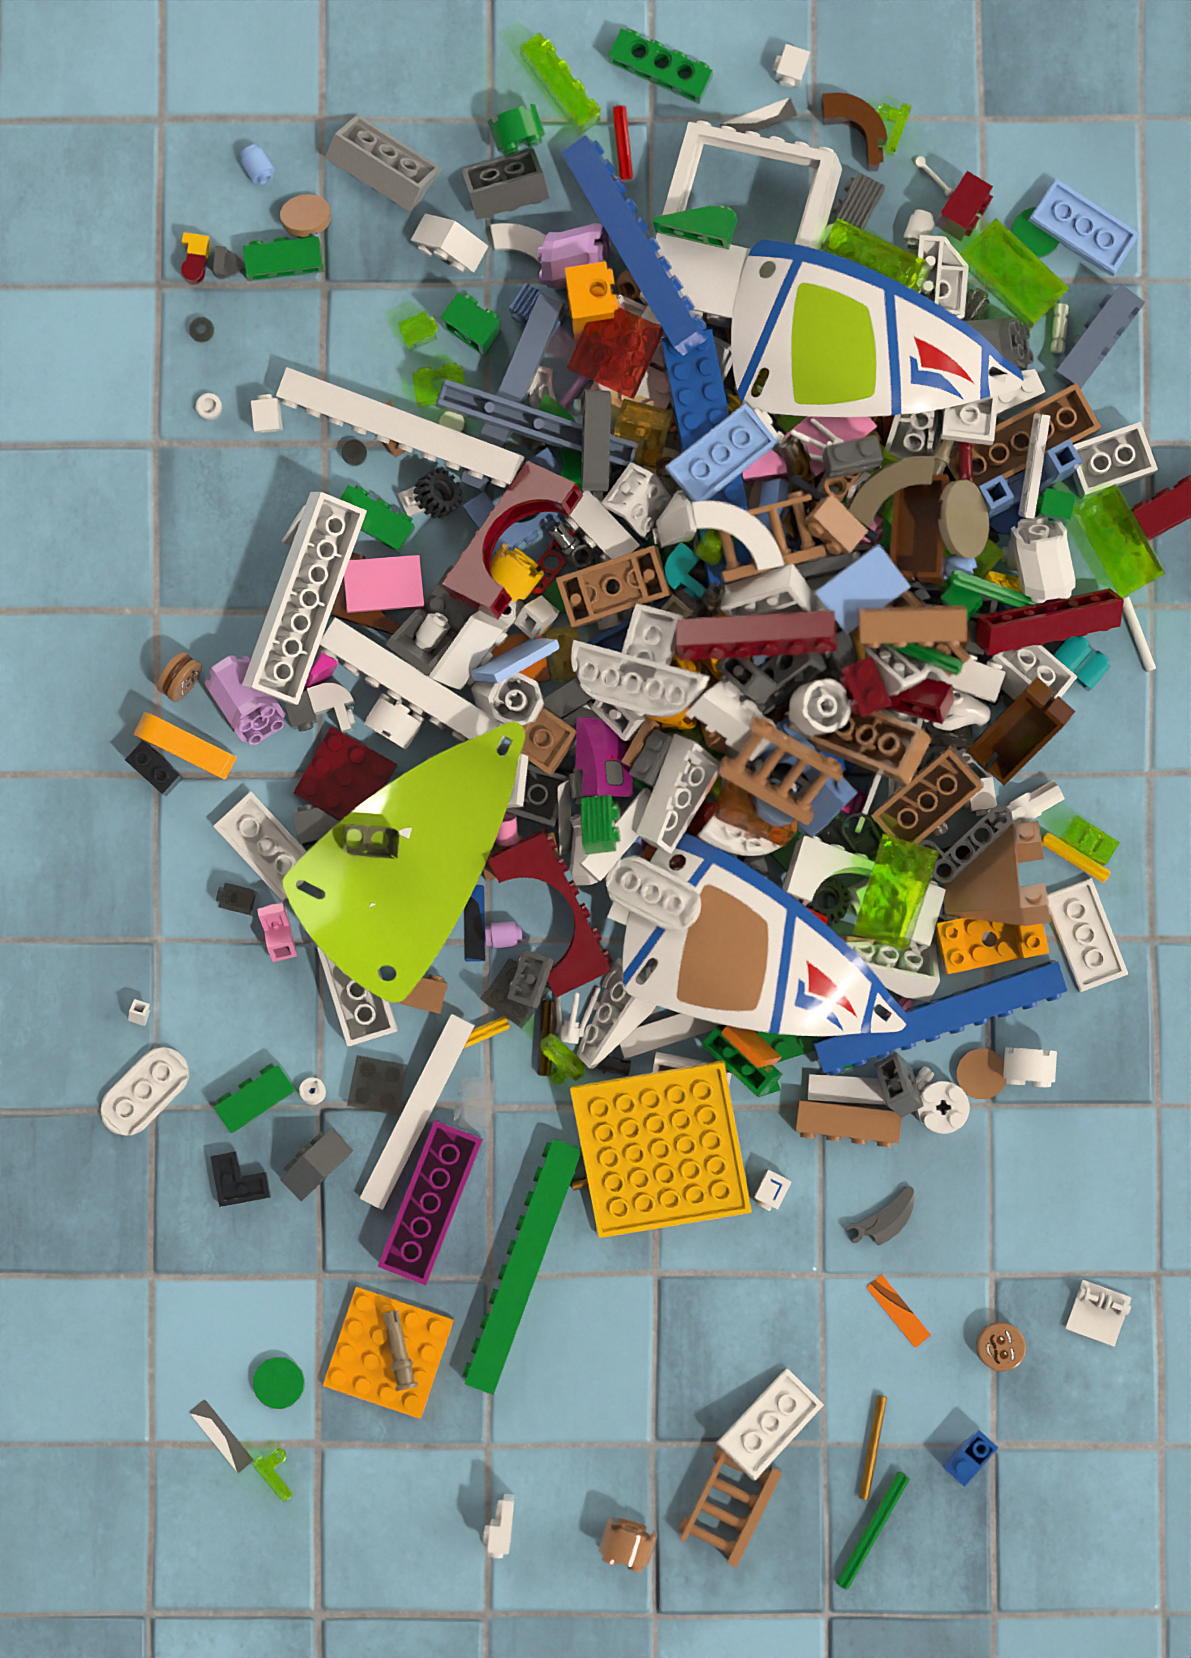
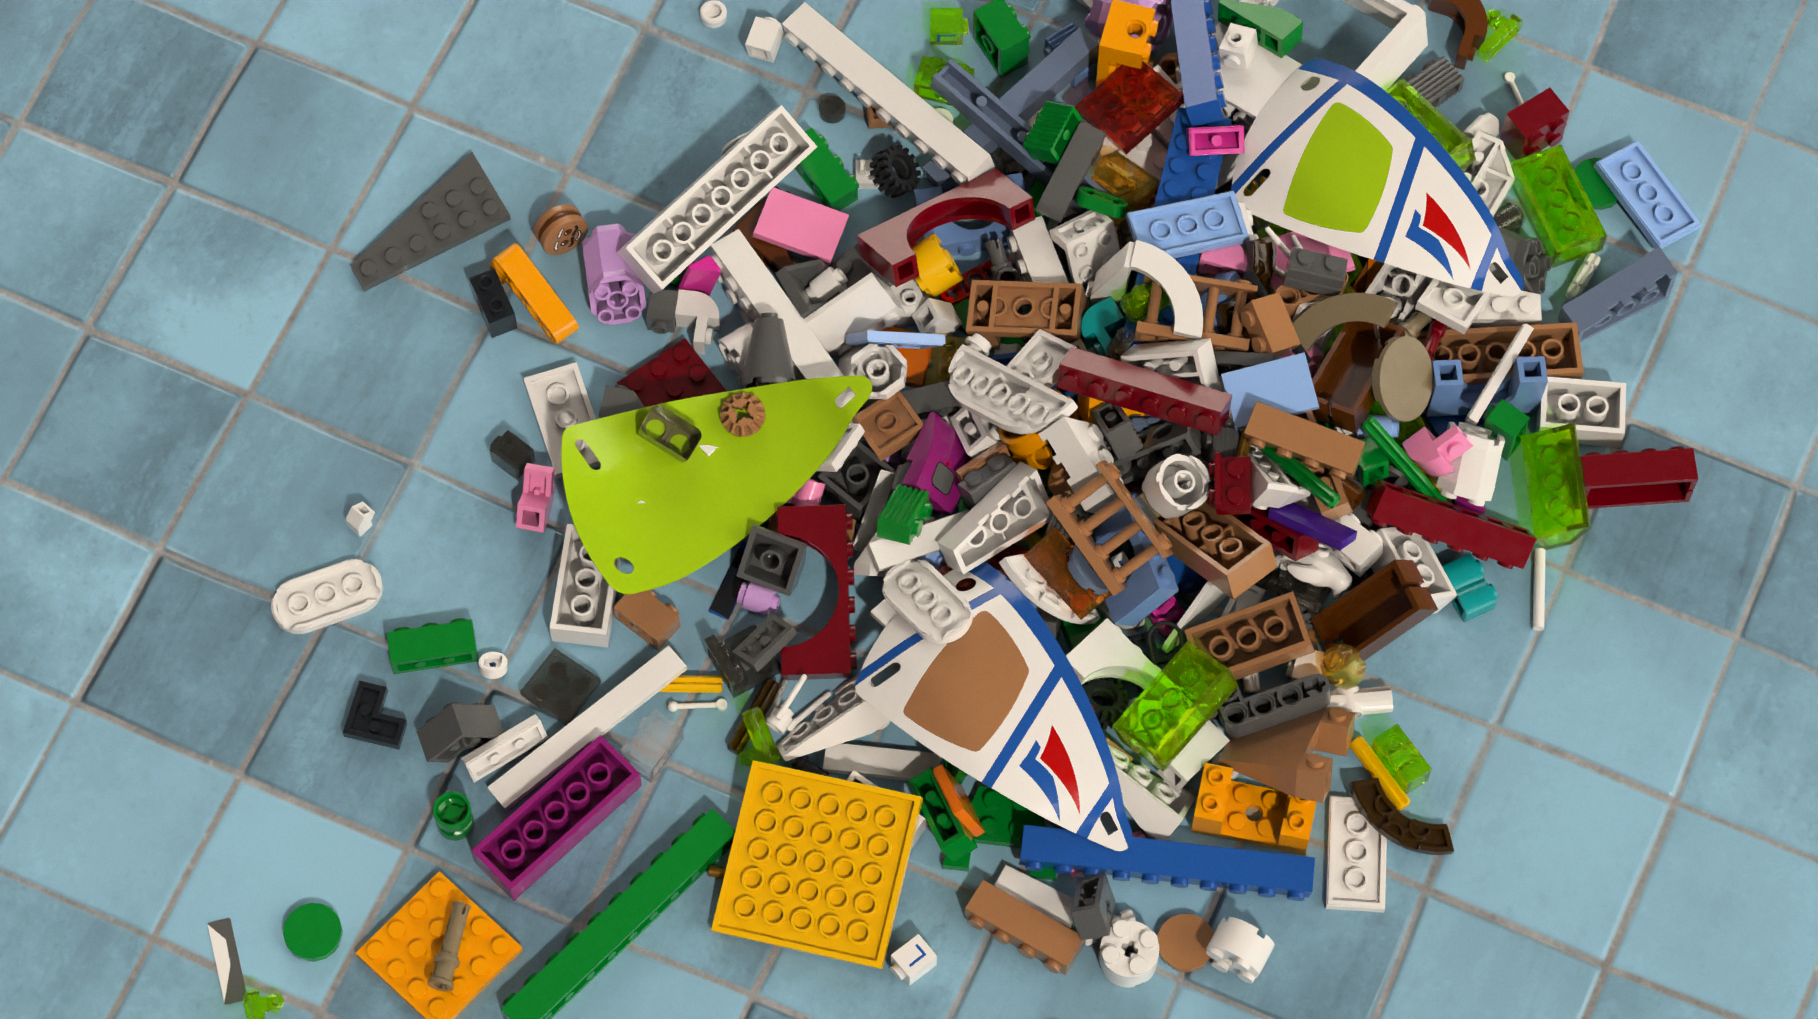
camera: 20 degrees right, 20 degrees down
(72, 705) = (447, 216): none -> dark grey wing
(345, 1238) = (453, 816): none -> green wheel
(358, 1159) = (504, 748): none -> white tile
(418, 728) = (768, 354): none -> dark grey cone
(431, 785) = (744, 427): none -> medium nougat gear
(502, 904) = (772, 560): none -> dark grey slope
(514, 1038) = (721, 705): none -> white hinge
(564, 412) = (1052, 132): none -> green brick
(587, 635) = (978, 344): none -> white plate
(634, 457) = (1101, 202): none -> green beam
(688, 257) = (1238, 47): none -> white brick
(708, 358) = (1215, 140): none -> dark pink slope
(949, 691) = (1313, 525): none -> dark purple tile
(1012, 786) = (1343, 666): none -> clear yellow hair
(1015, 571) = (1436, 454): none -> bright pink brick
(1108, 899) = (1407, 833): none -> dark brown tile

